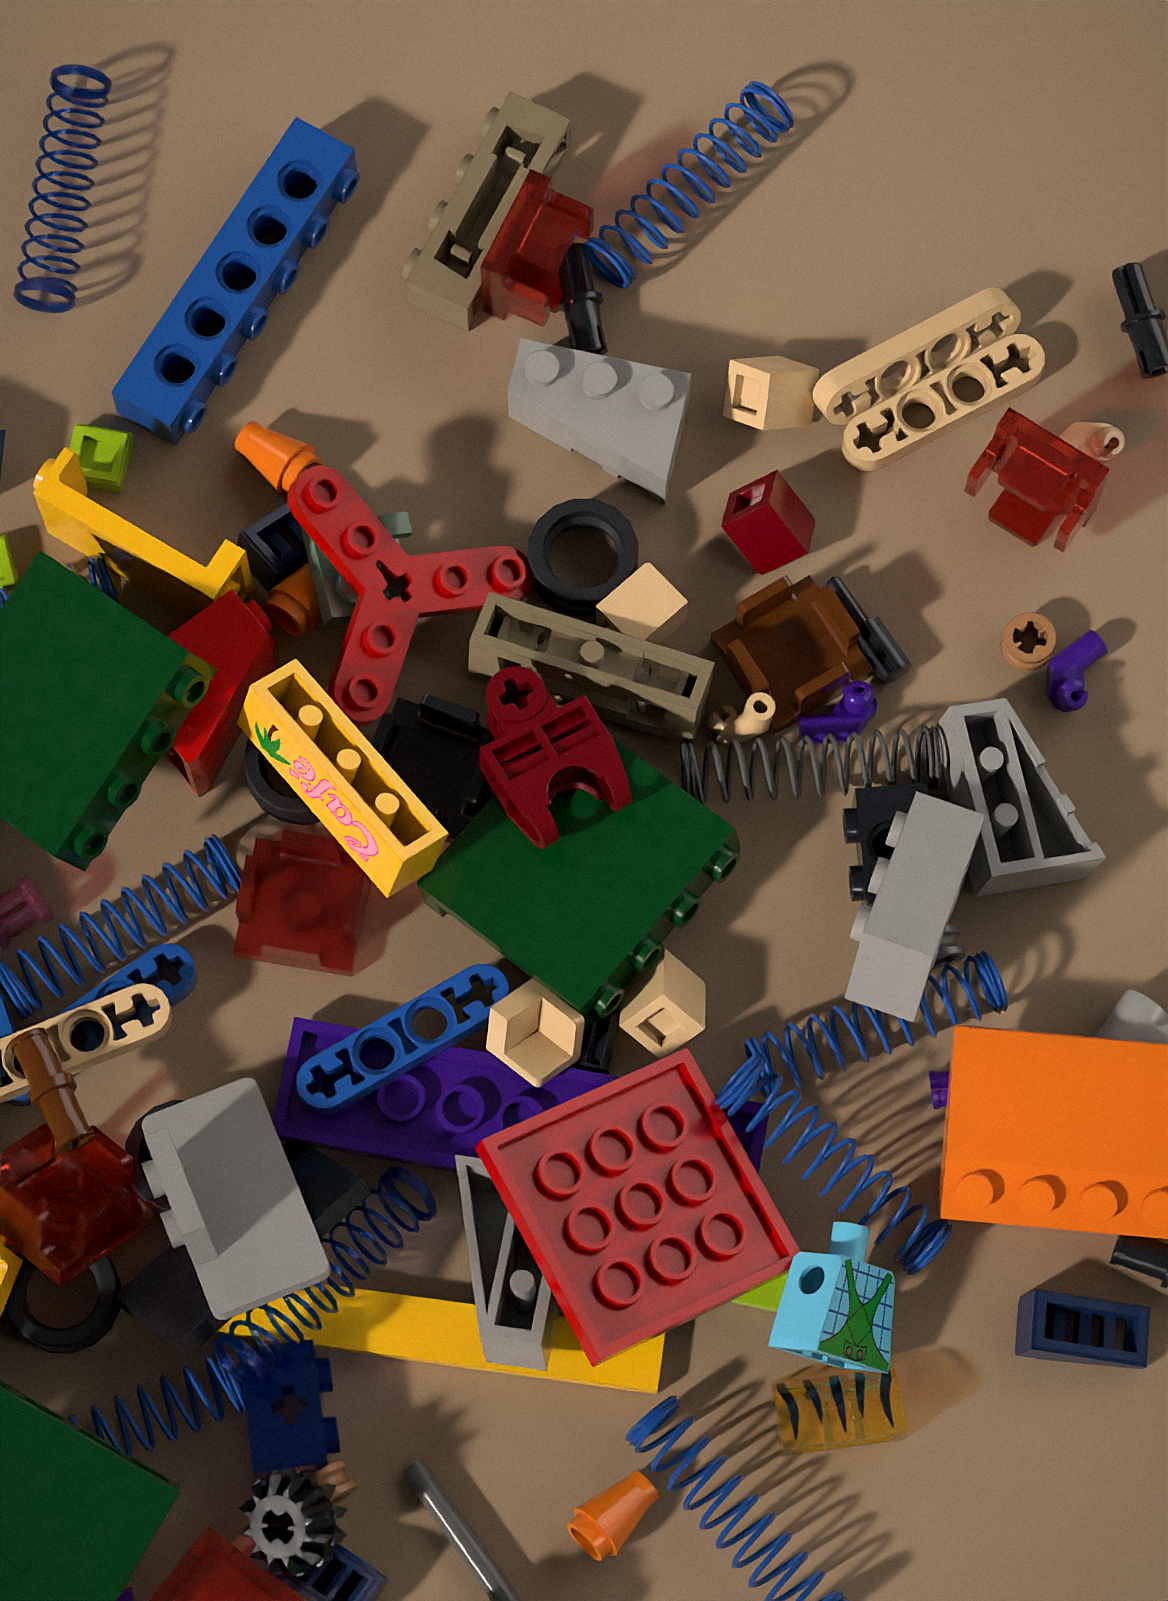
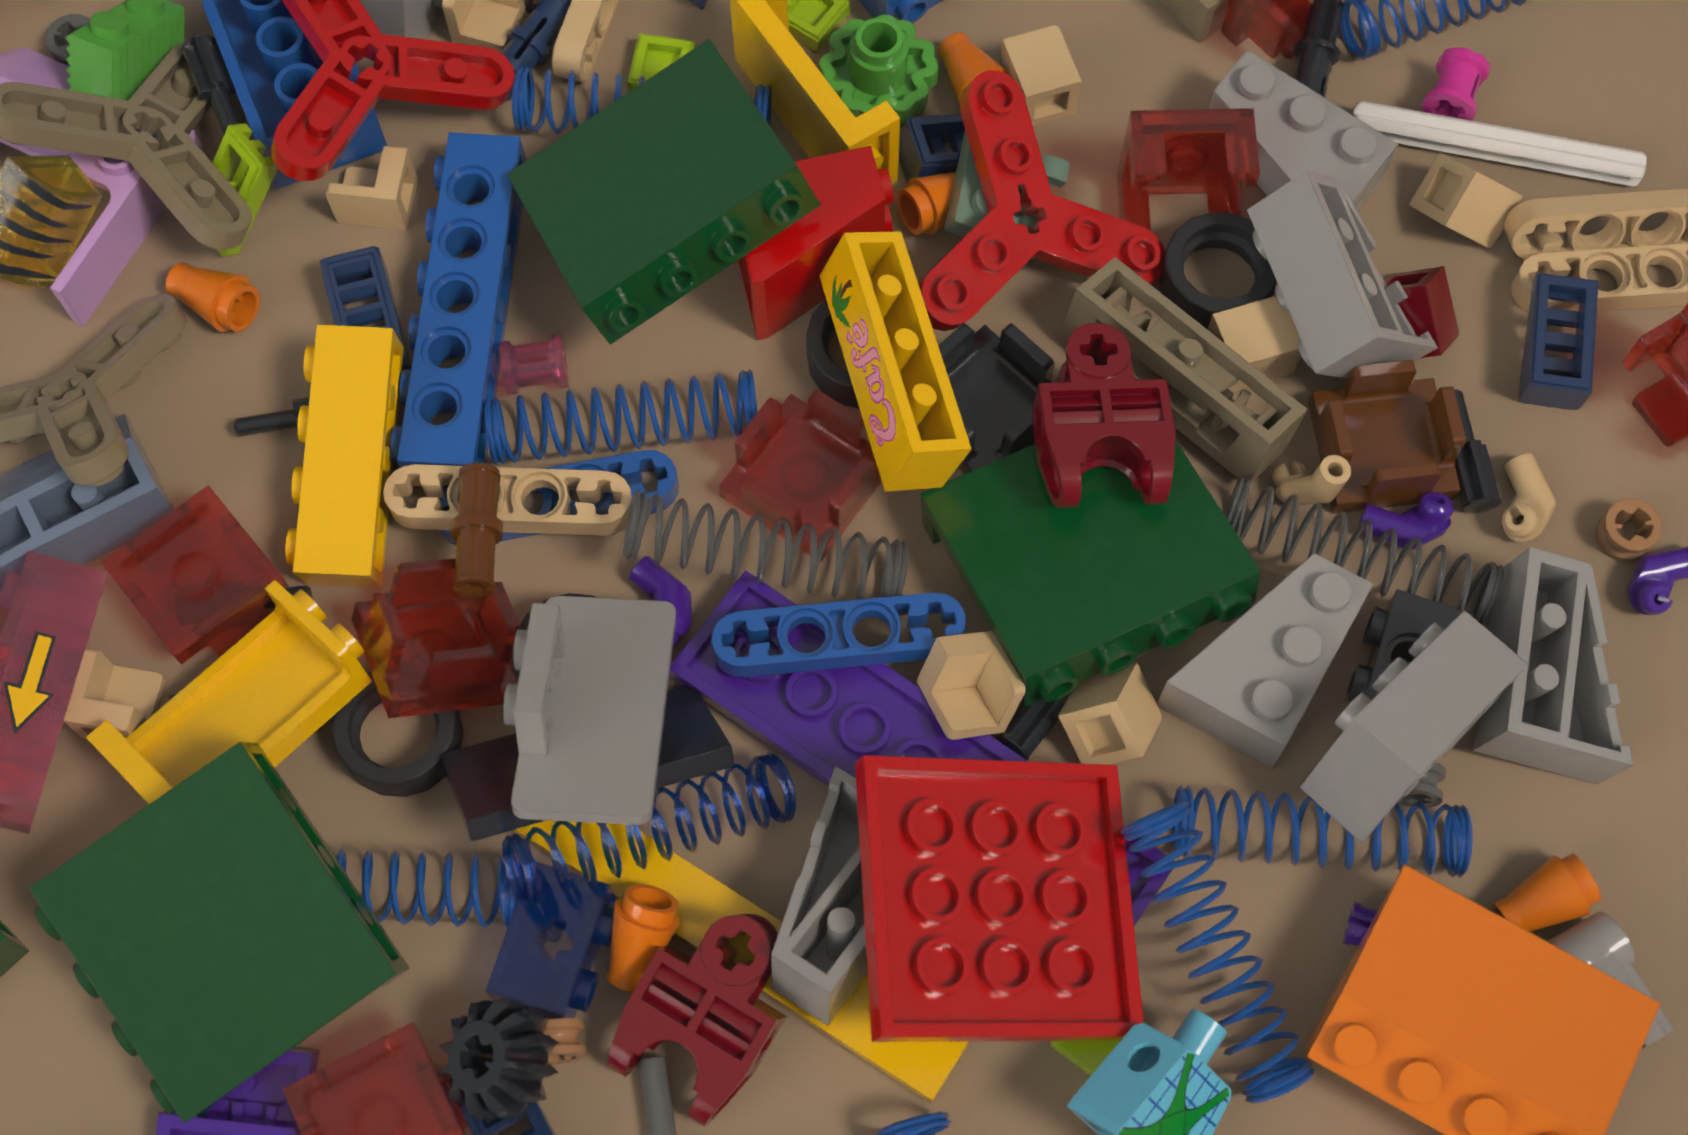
camera: 25 degrees right, 5 degrees down
(189, 1024) = (893, 572): none -> dark grey piece
(190, 491) = (880, 63): none -> bright green plant
(229, 1064) = (663, 586): none -> dark purple arm
(341, 433) = (1044, 72): none -> tan panel
(356, 1368) = (641, 925): none -> orange cone
(441, 1403) = (706, 1008): none -> dark red piece
(507, 461) = (1187, 155): none -> clear red panel
(687, 534) = (1329, 279): none -> light grey wedge
(718, 283) = (1457, 83): none -> dark pink bush
(776, 321) = (1504, 144): none -> white axle
(776, 900) = (1269, 663): none -> light grey wedge
(914, 542) = (1551, 379): none -> dark blue slope
(939, 652) = (1533, 500): none -> tan arm
(1083, 994) = (1551, 895): none -> orange cone

